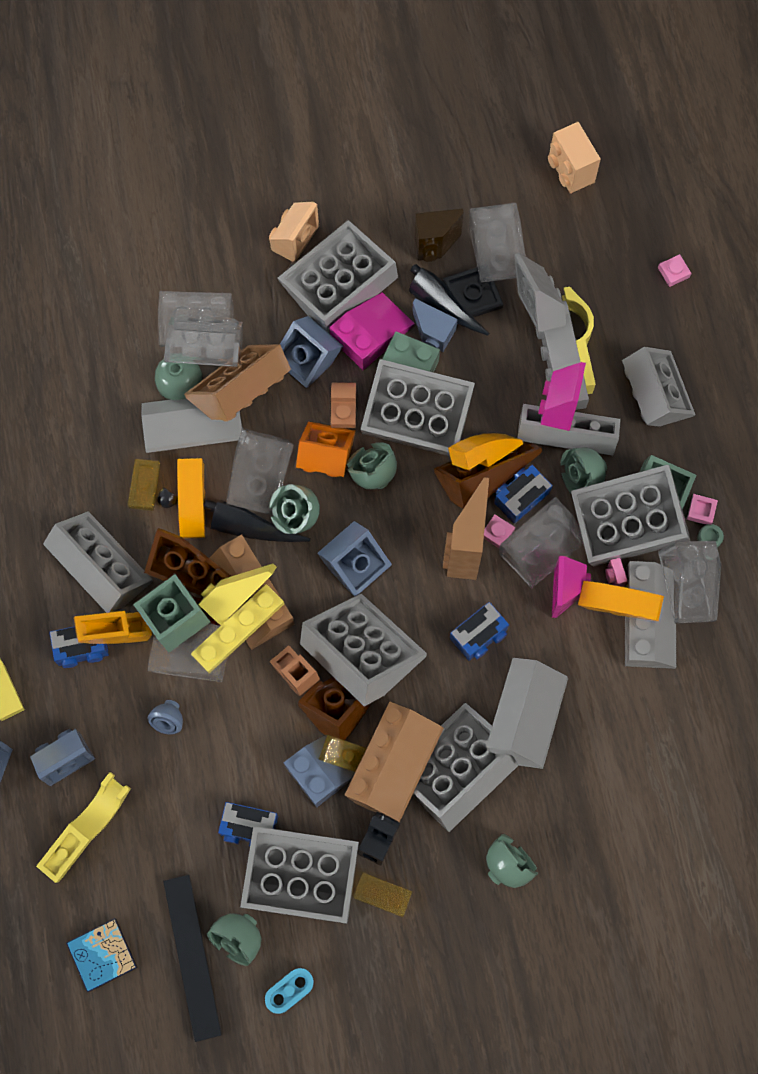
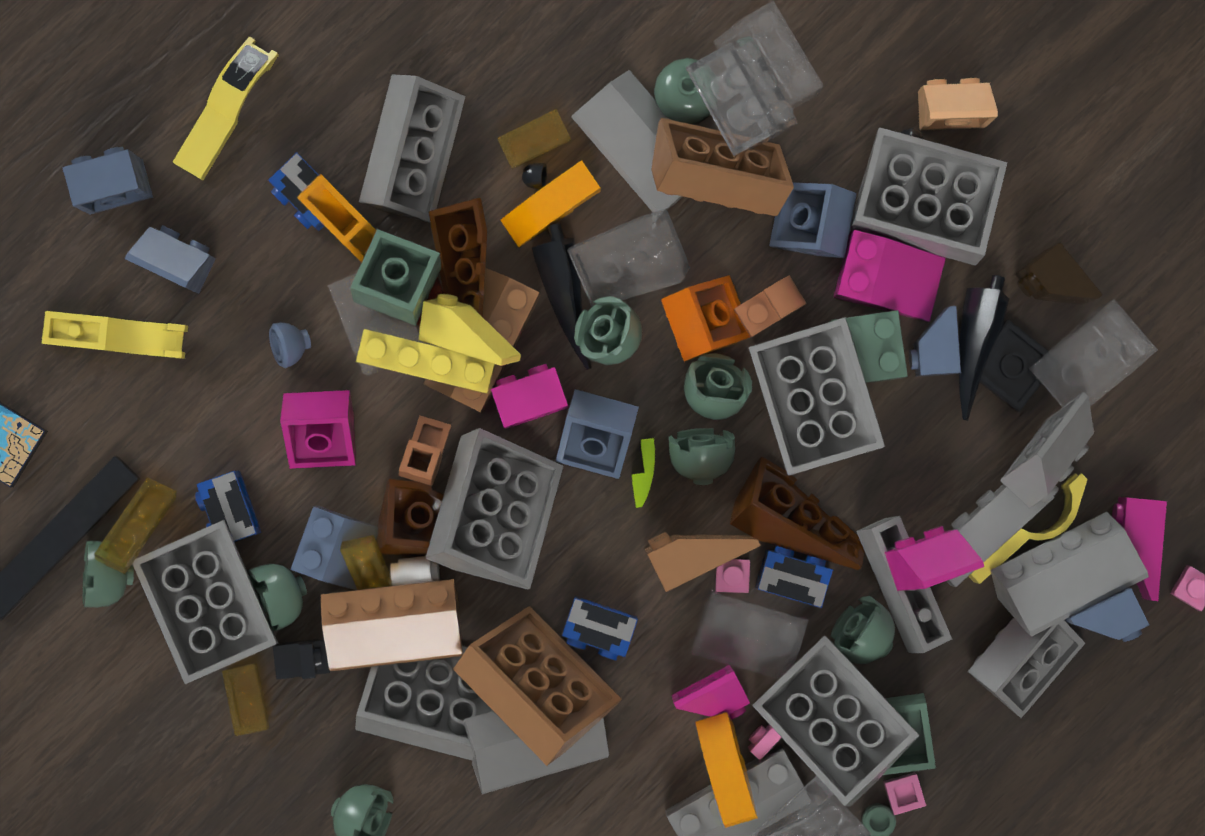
camera: 55 degrees right, 15 degrees up
(218, 891) = (135, 525): none -> clear yellow plate
(236, 732) = (318, 429): none -> dark pink slope
(289, 991) = (87, 664): medium azure plate -> none
(303, 581) = (529, 397): none -> dark pink brick
(326, 822) = (278, 593): none -> sand green cylinder
(367, 727) = (414, 571): none -> white brick
(403, 549) = (642, 481): none -> lime slope
(409, 501) = (701, 454): none -> sand green cylinder
(482, 449) = (815, 503): light orange slope -> none
(491, 689) = (536, 684): none -> medium nougat slope
(621, 329) = (1068, 574): none -> light grey slope
(626, 280) = (1145, 527): none -> dark pink slope
(661, 320) = (1113, 617): none -> sand blue slope

